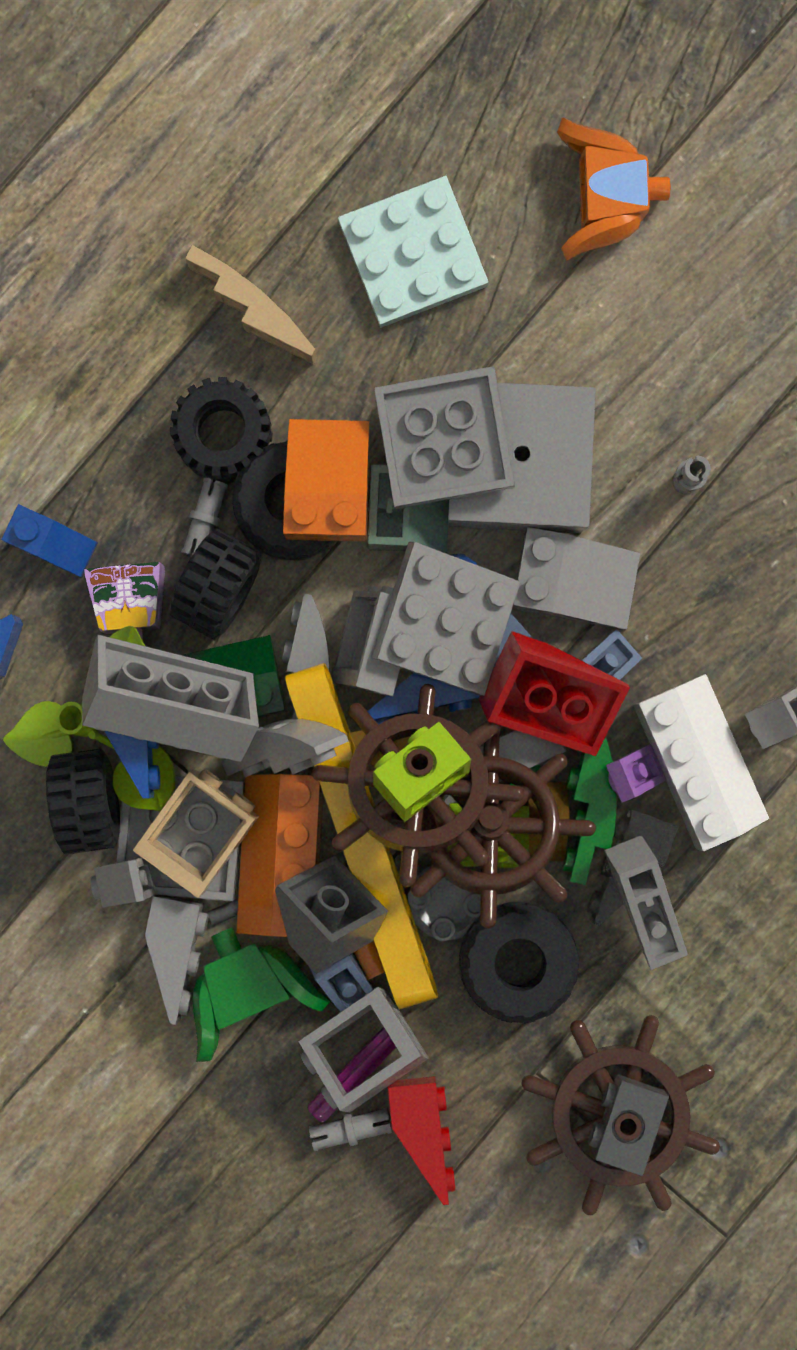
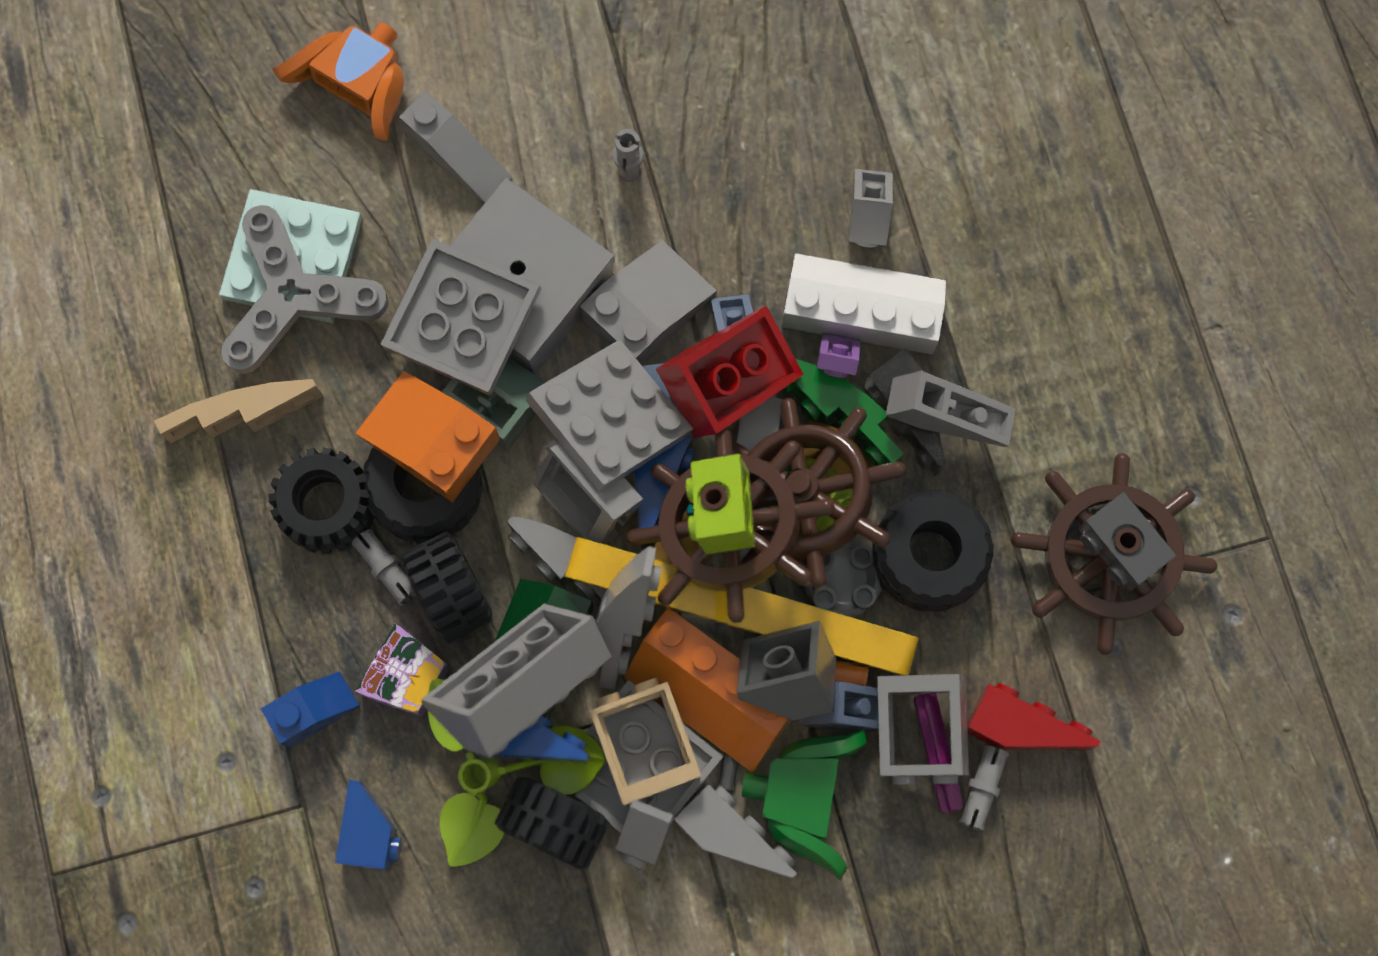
camera: 60 degrees left, 10 degrees down
(348, 275) = (272, 313): none -> light grey piece
(599, 321) = (452, 146): none -> light grey slope

